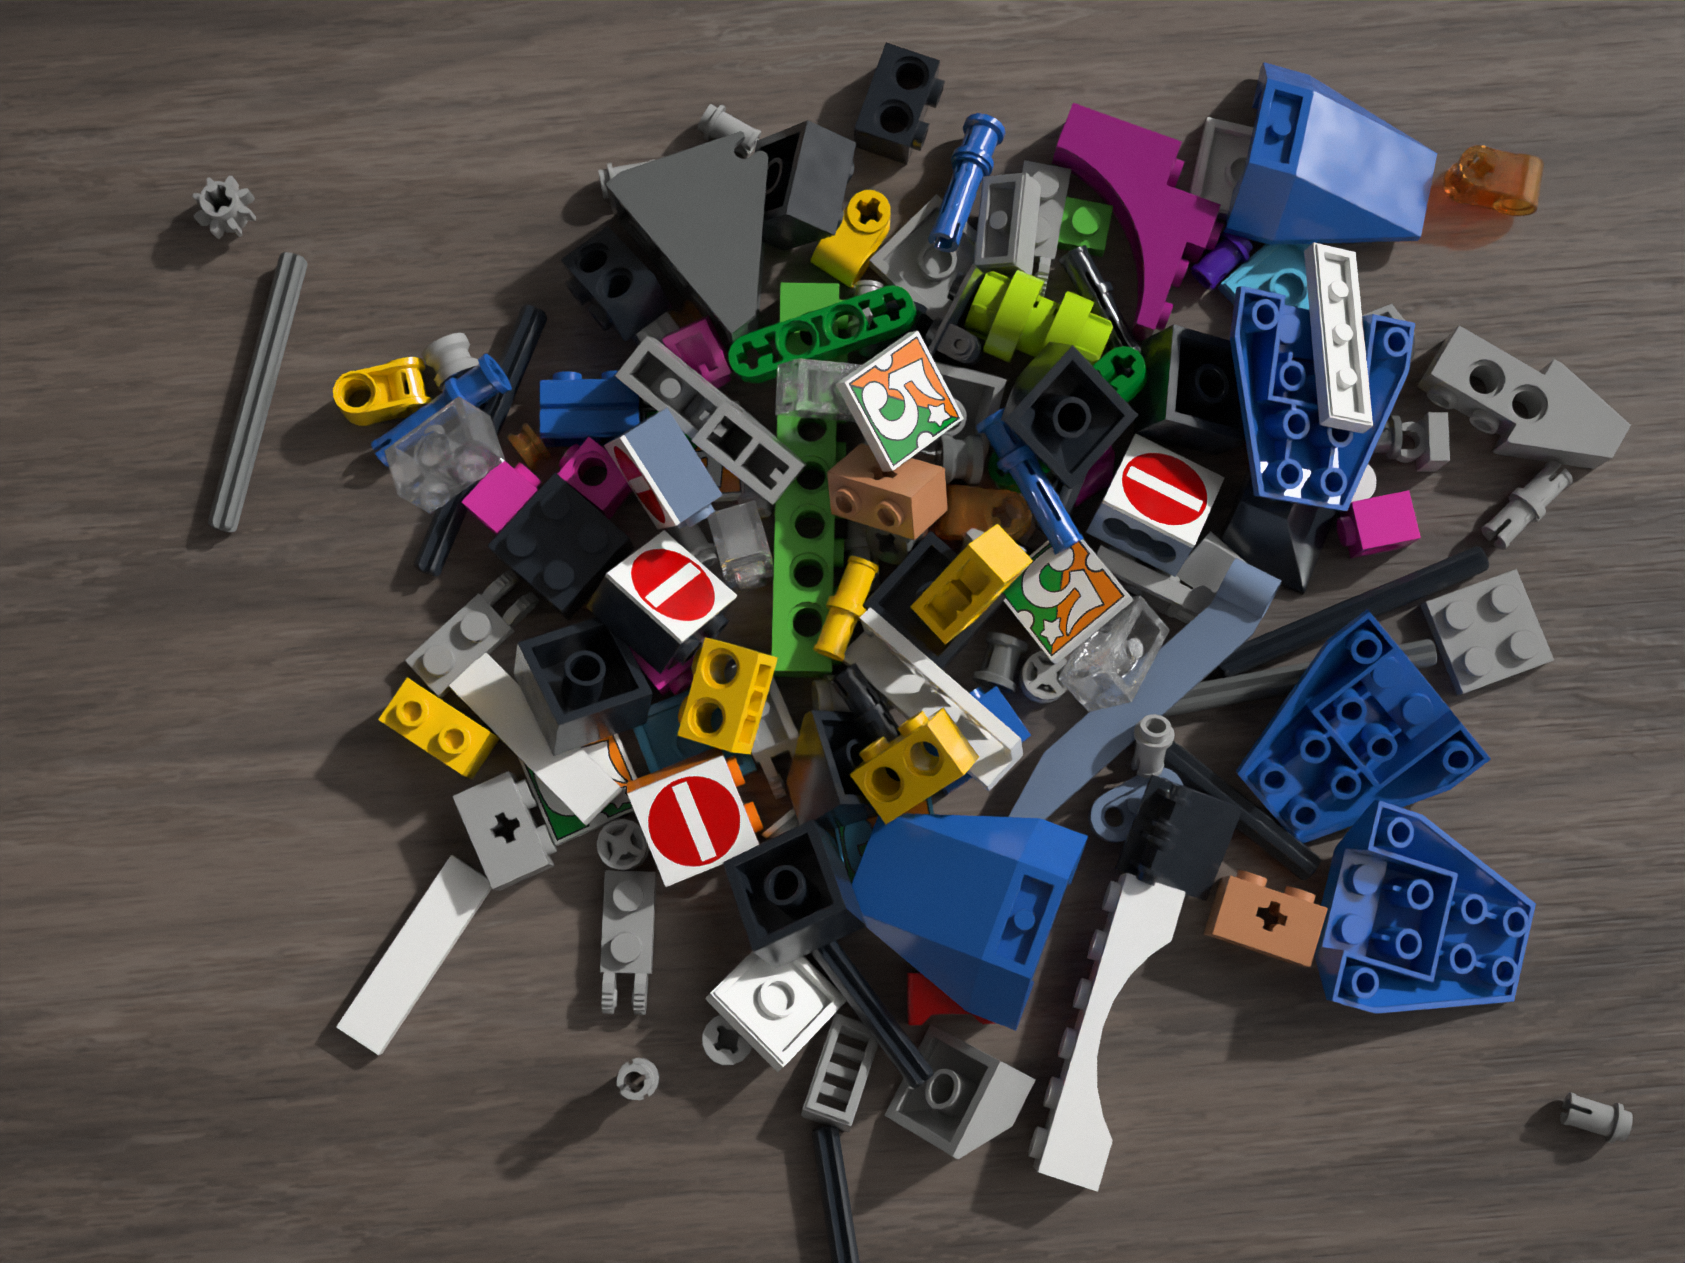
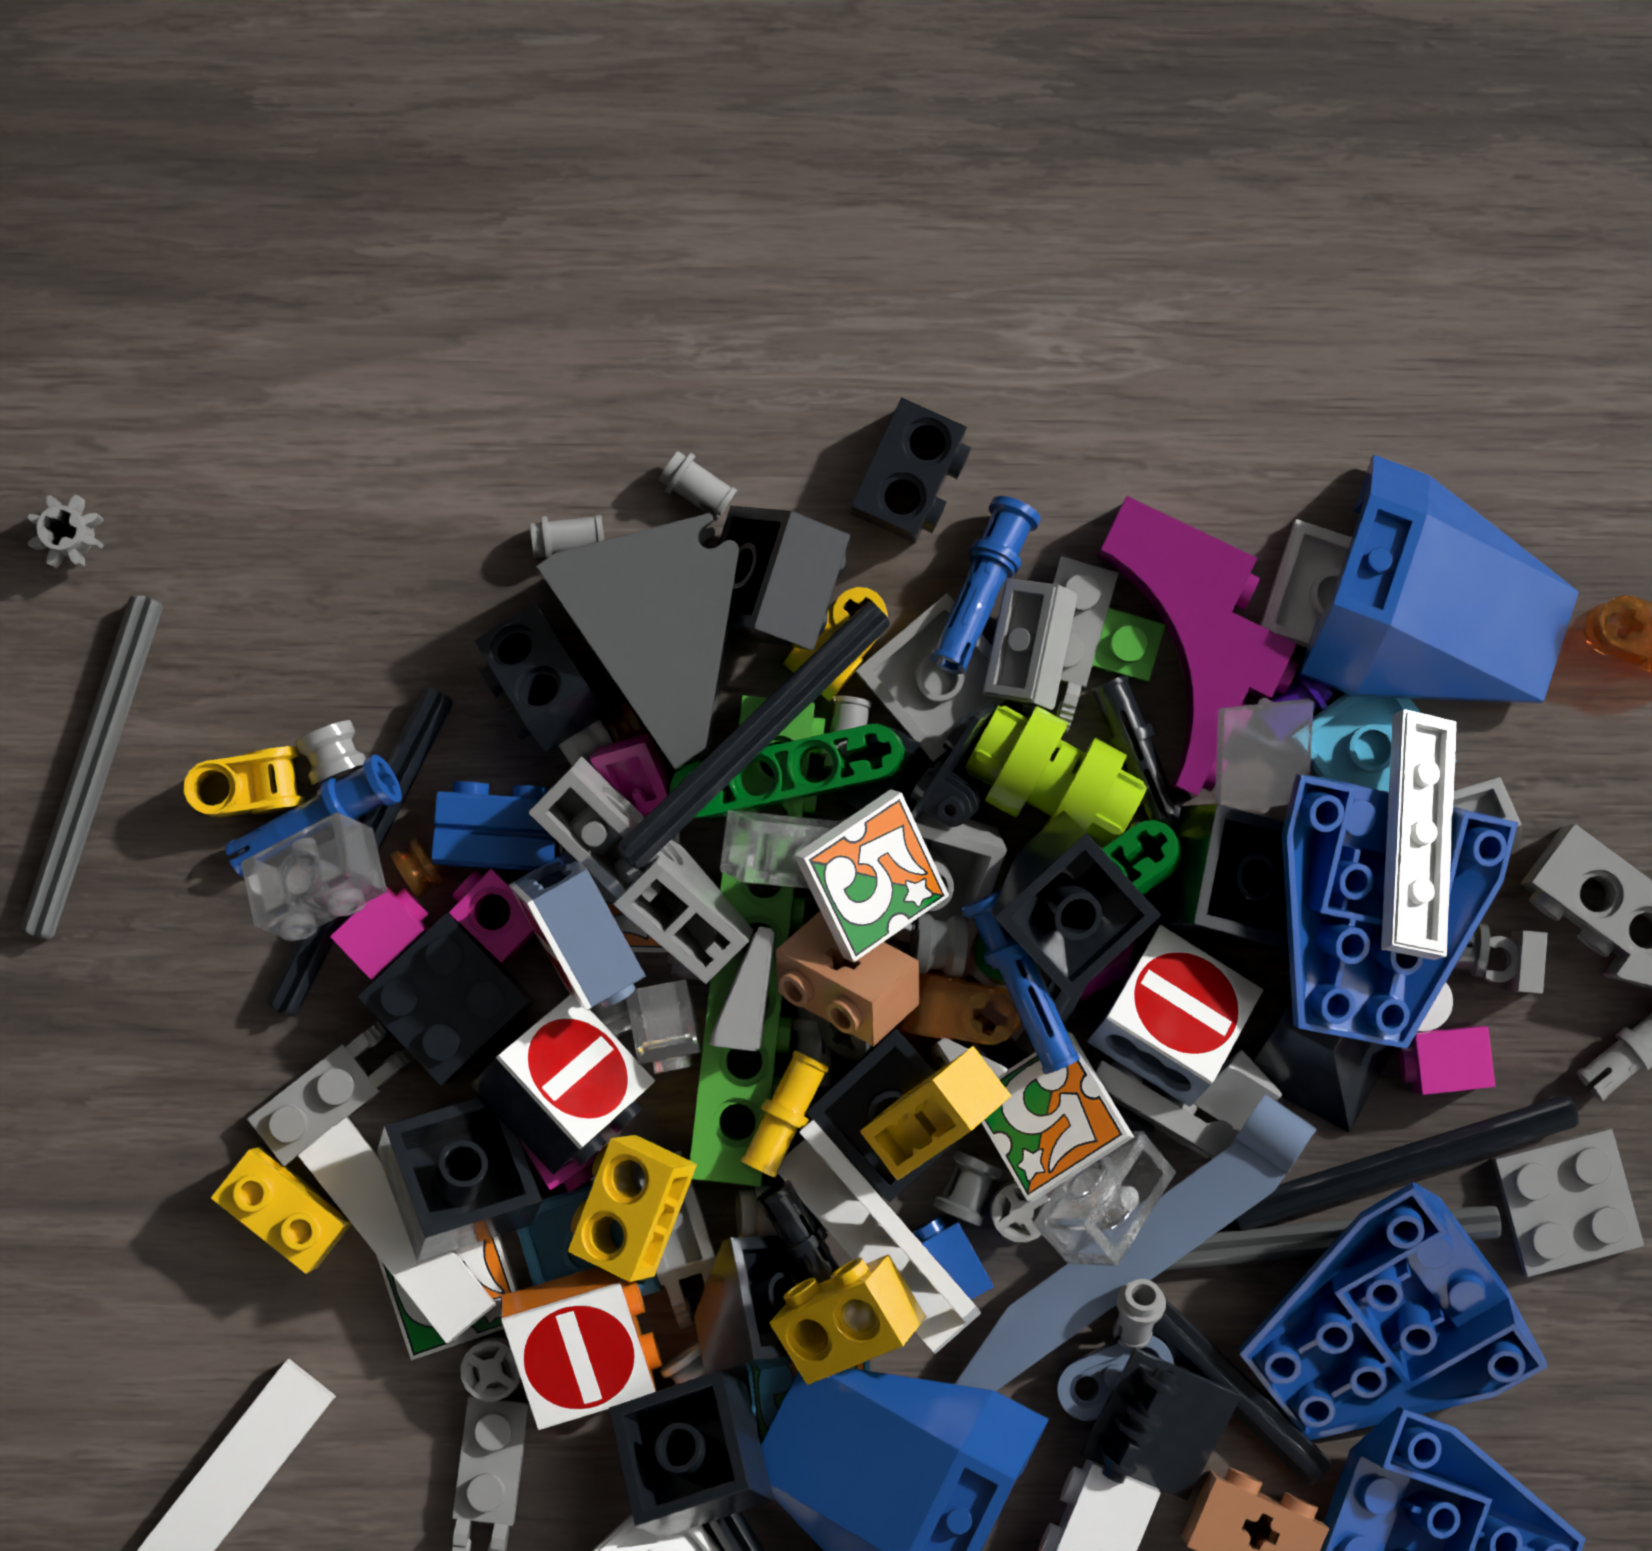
camera: 10 degrees right, 5 degrees up
(482, 815) = (343, 1370): light grey brick -> none
(791, 303) = (752, 736): none -> black axle
(805, 524) = (744, 1010): none -> light grey slope
(1202, 290) = (1262, 752): none -> clear piece

